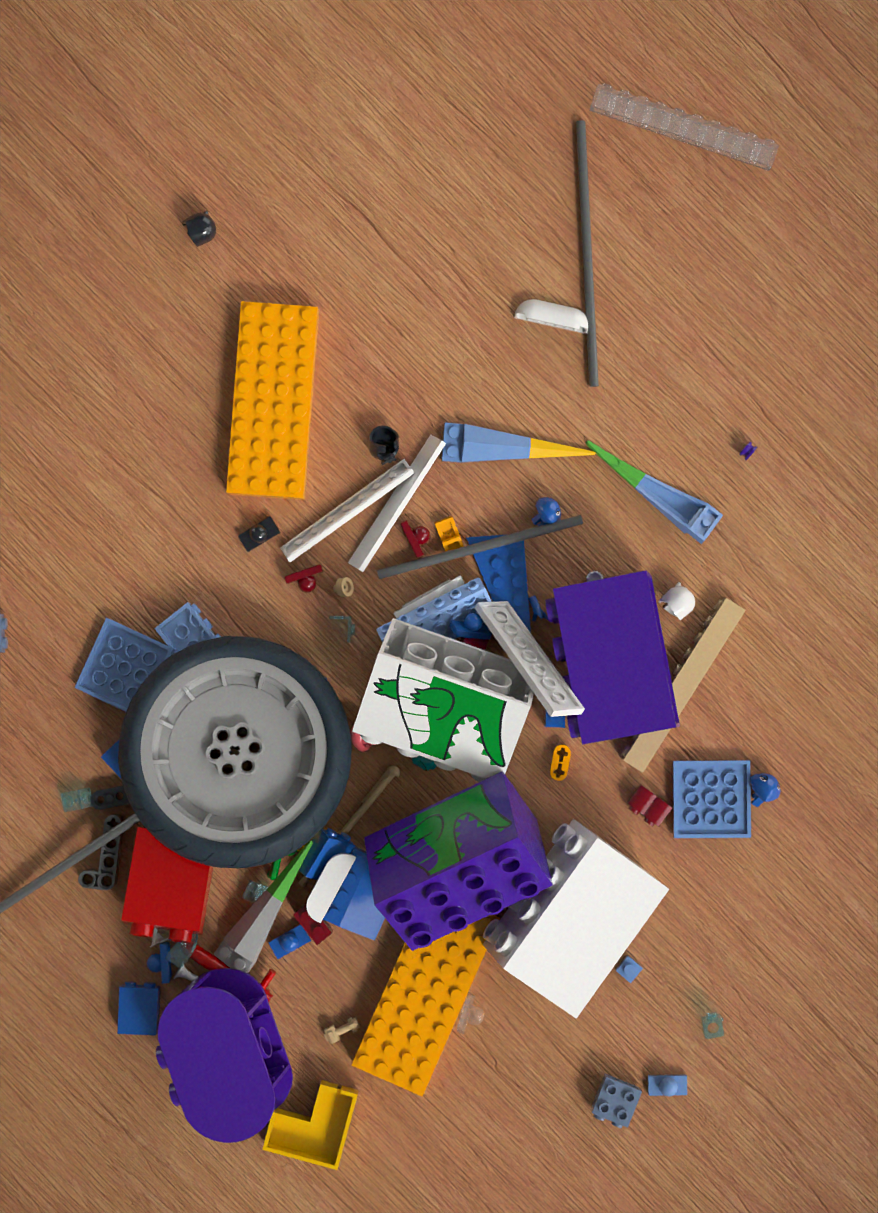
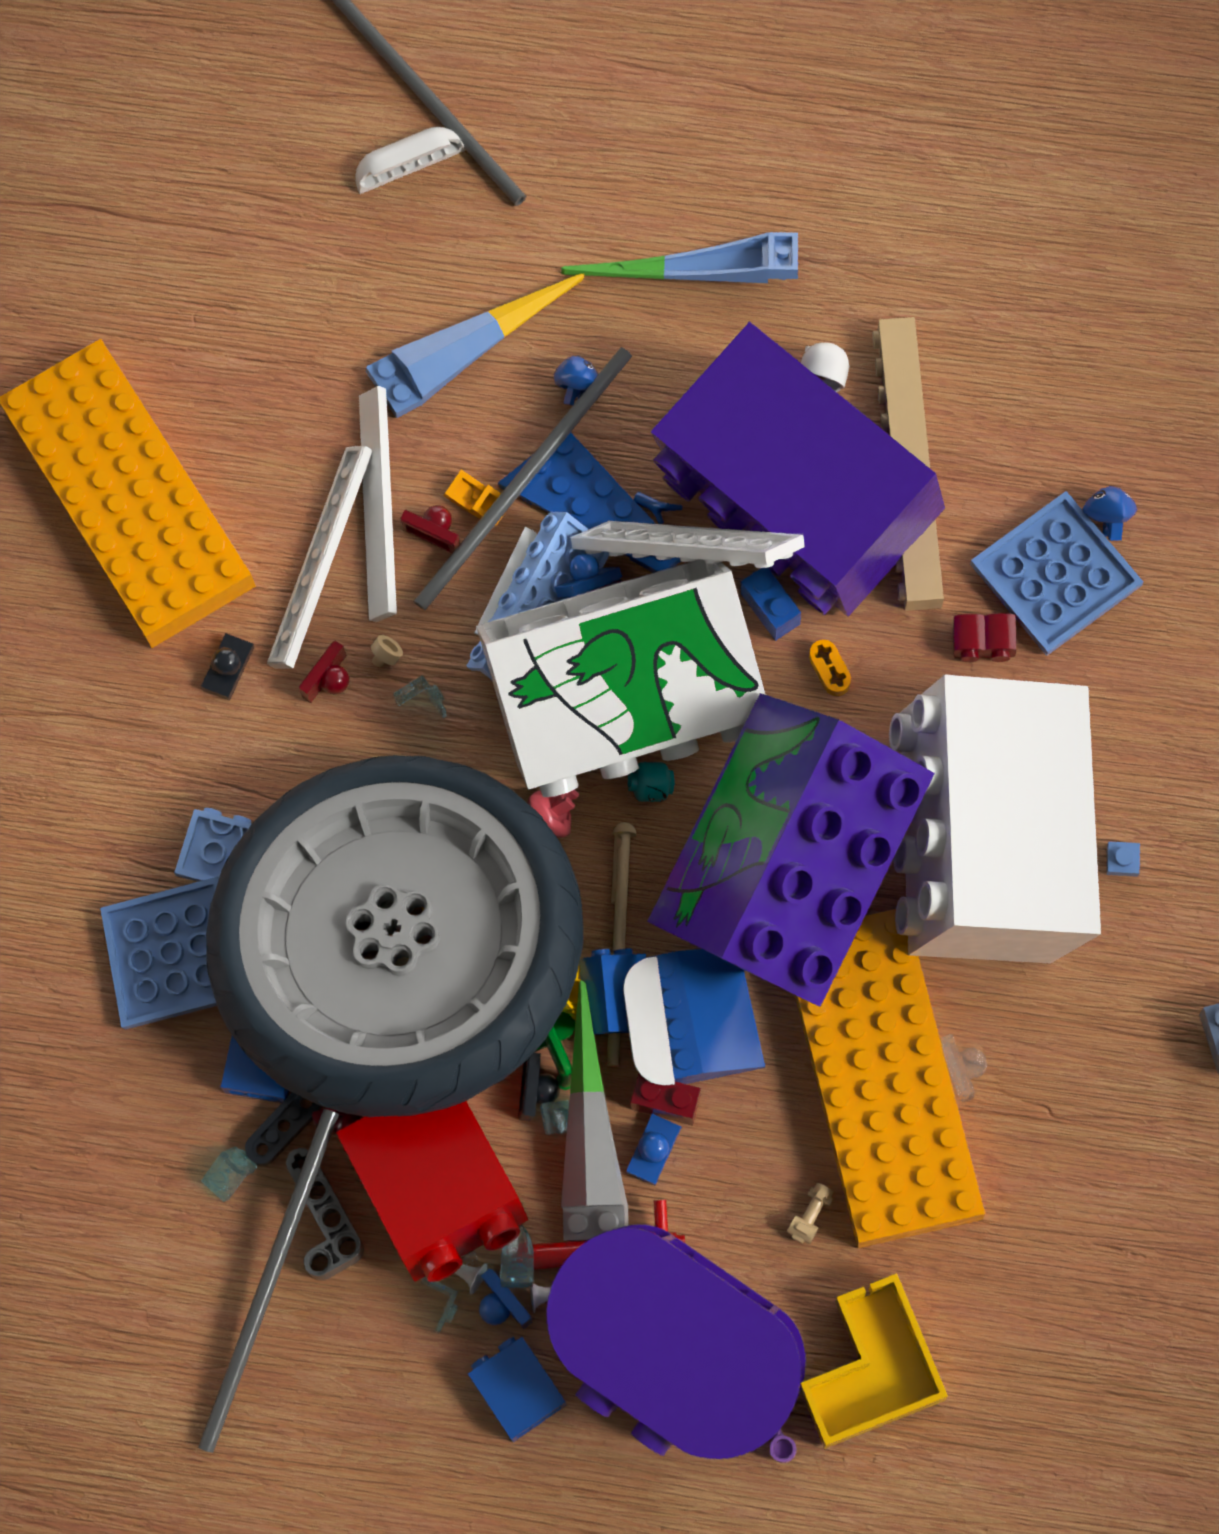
camera: 30 degrees left, 15 degrees down
(133, 947) = (449, 1309): none -> clear light blue bracket
(257, 874) = (535, 1088): none -> black tile
(384, 444) = (307, 442): black helmet -> none
(748, 450) = (768, 140): dark purple bush -> none

